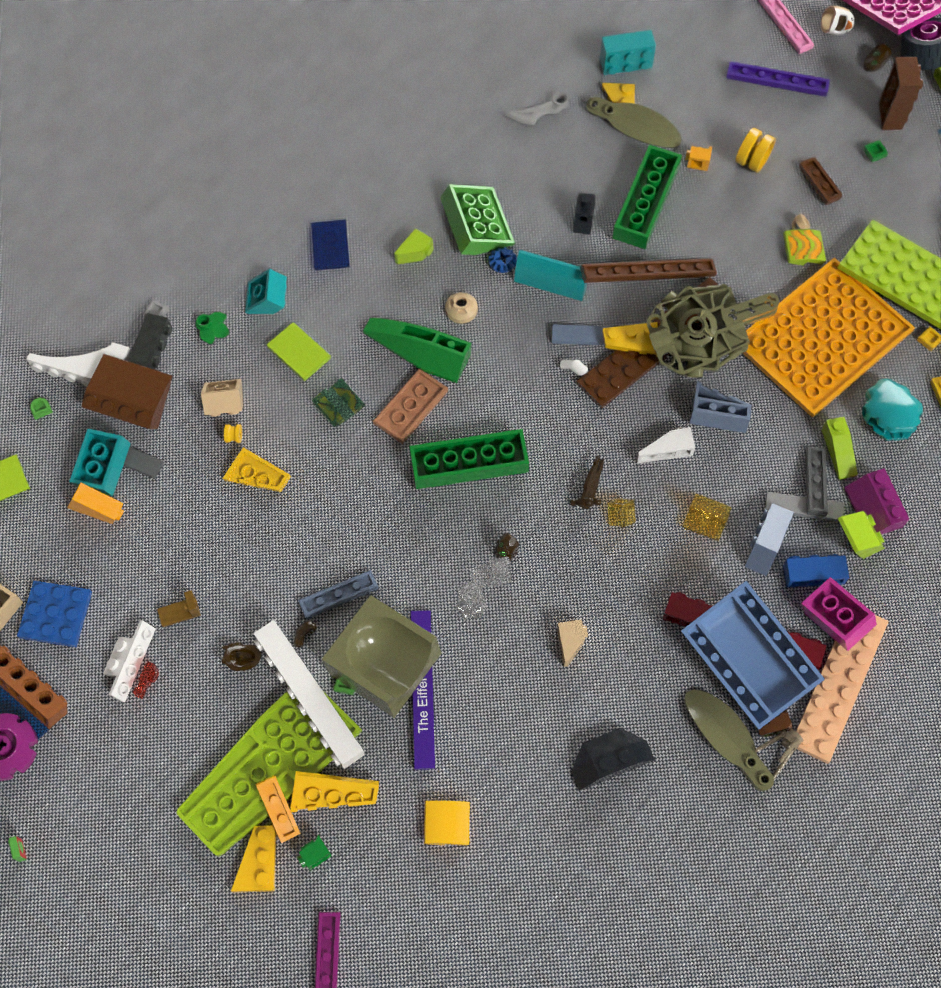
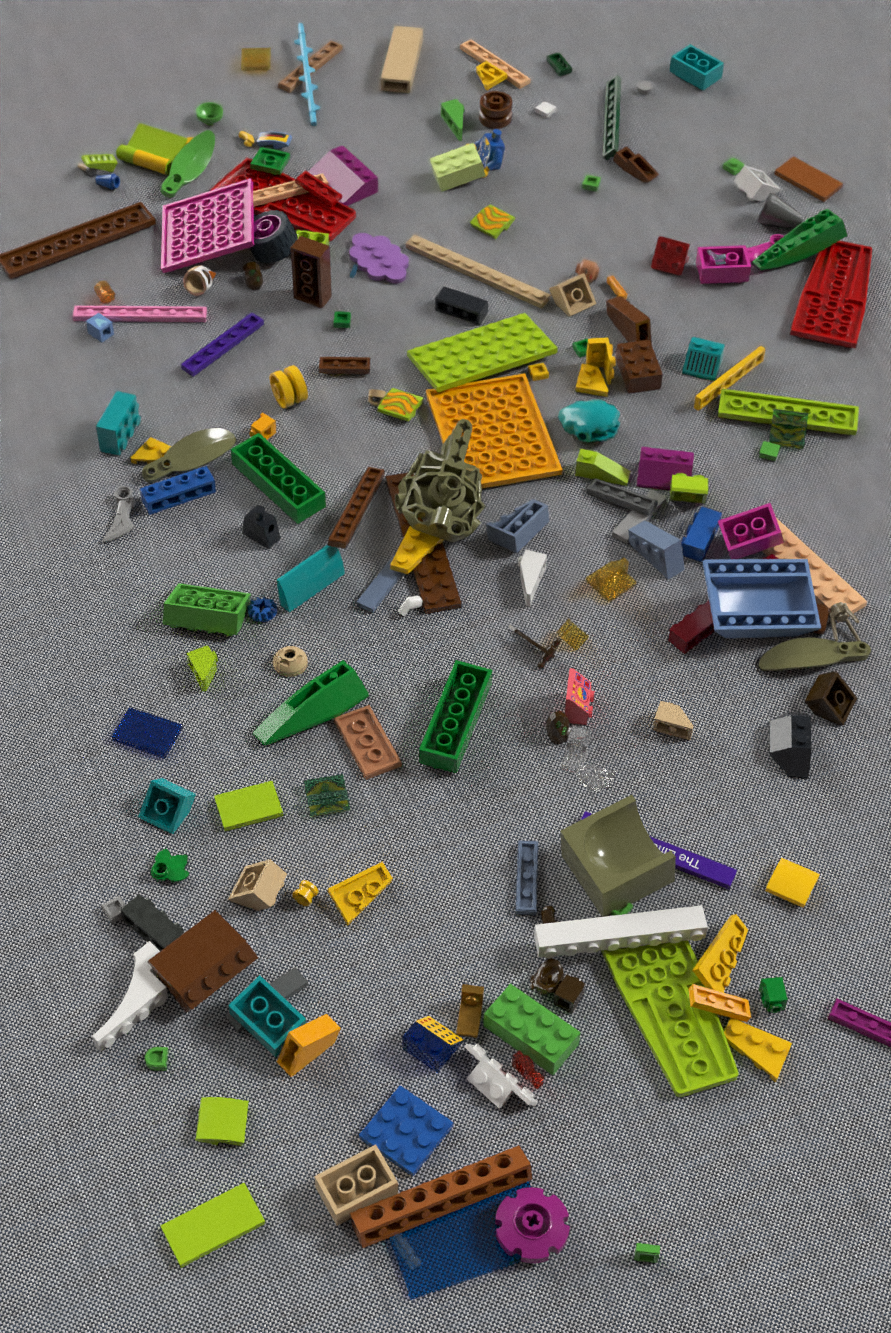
camera: 65 degrees left, 15 degrees down
(139, 594) = (430, 1043): none -> clear blue slope
(184, 665) = (531, 1029): none -> bright green brick
(234, 680) = (569, 993): none -> dark brown brick
(545, 548) = (578, 698): none -> coral slope
(588, 133) = (178, 490): none -> blue brick
(681, 775) = (831, 698): none -> dark brown slope

